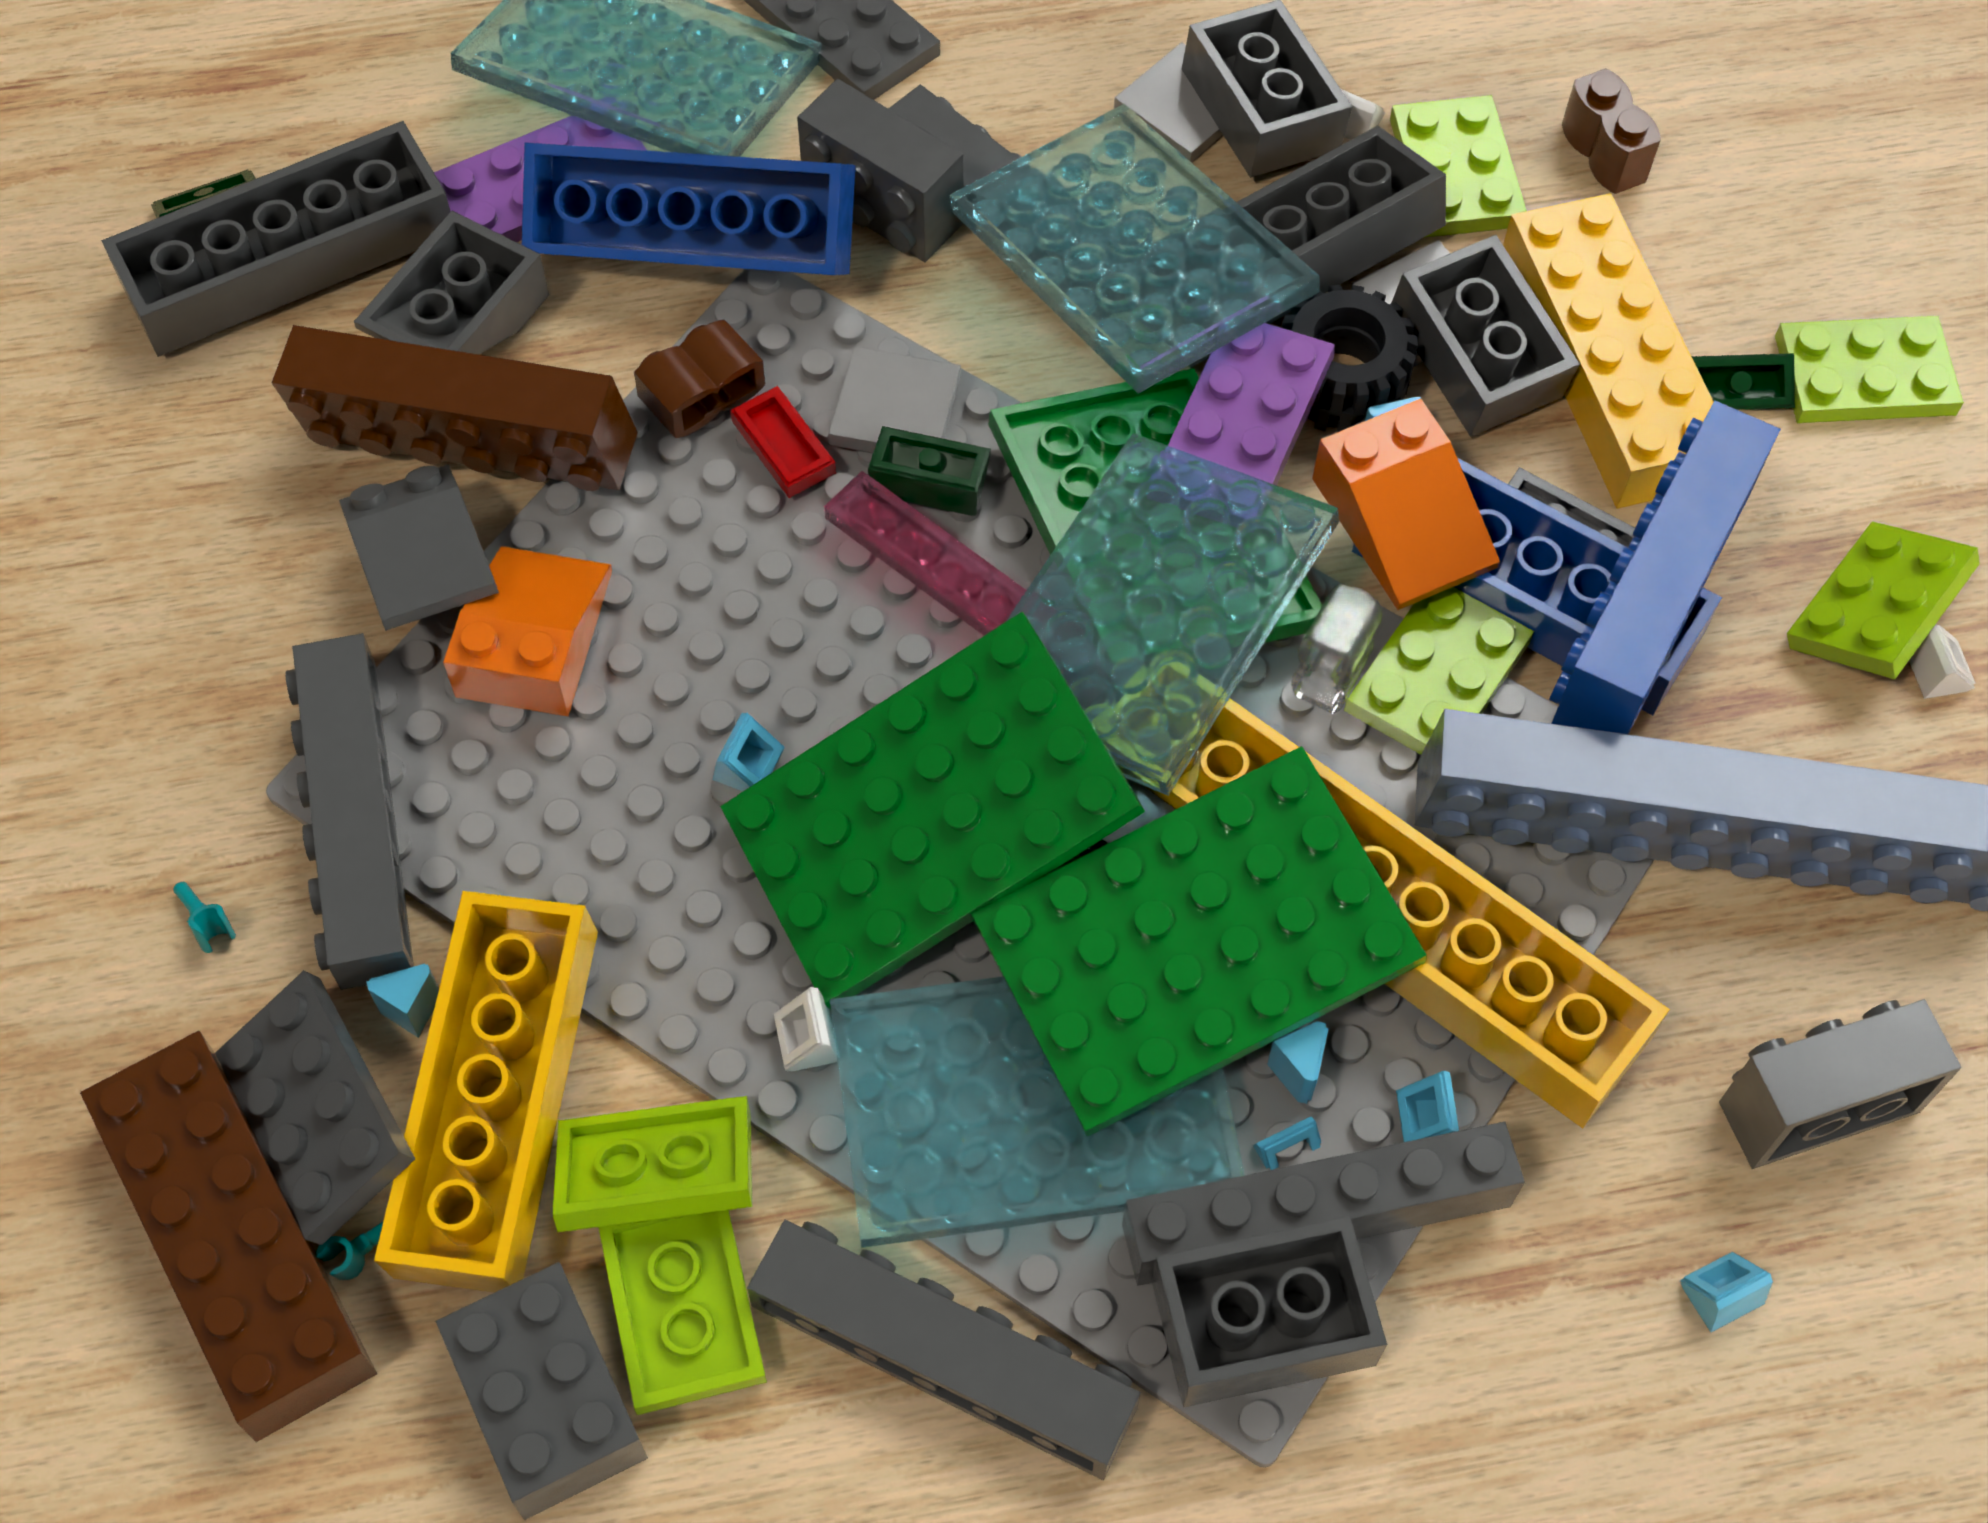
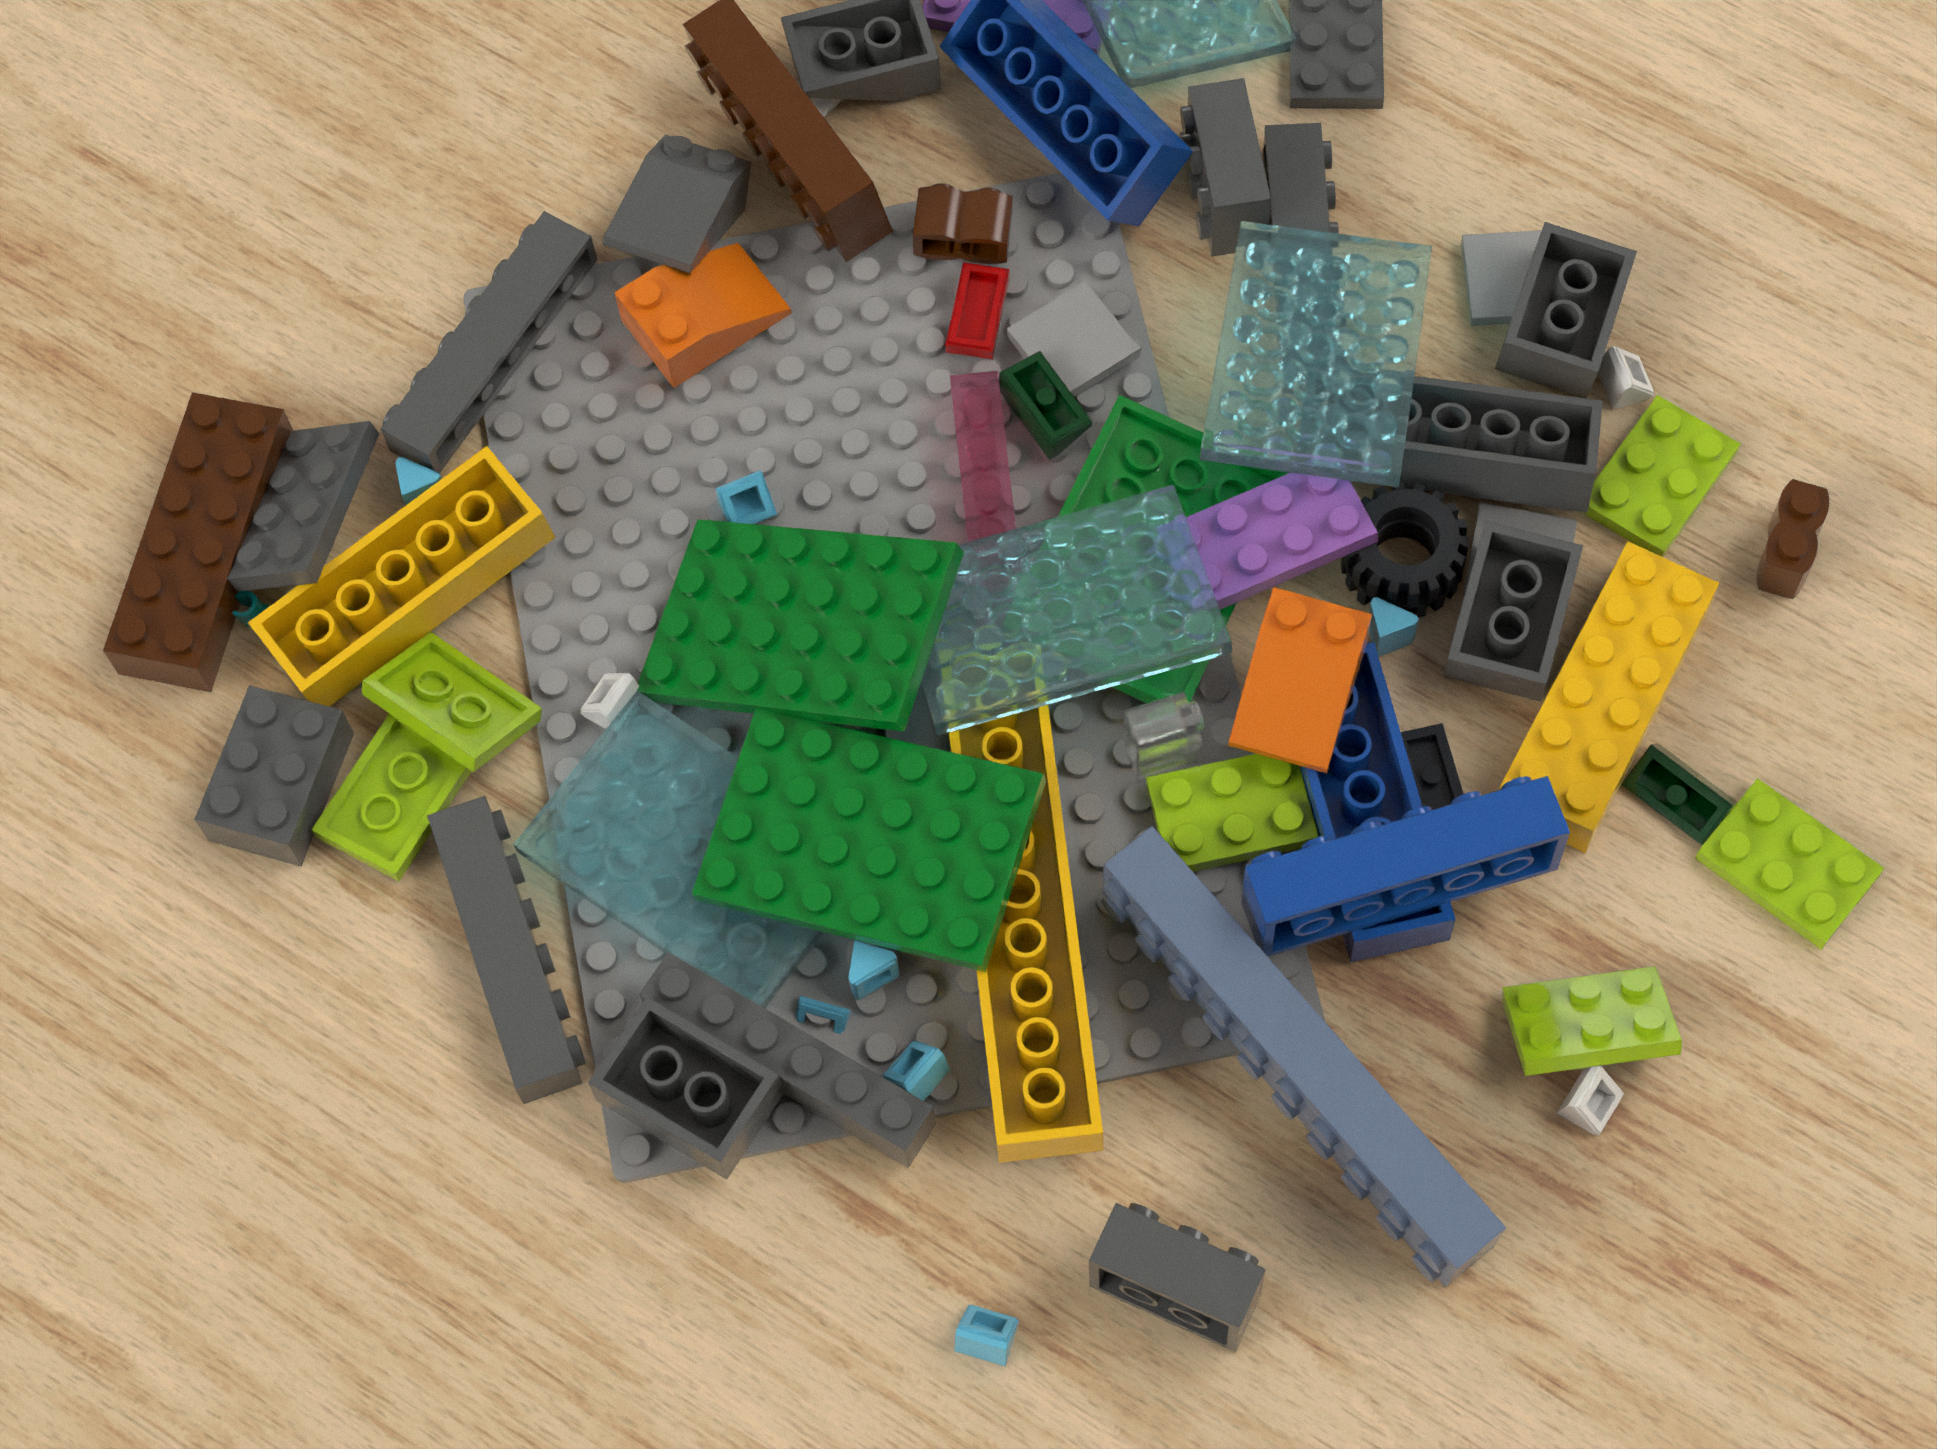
camera: 50 degrees right, 5 degrees up
(204, 919) = (359, 345): teal hand -> none

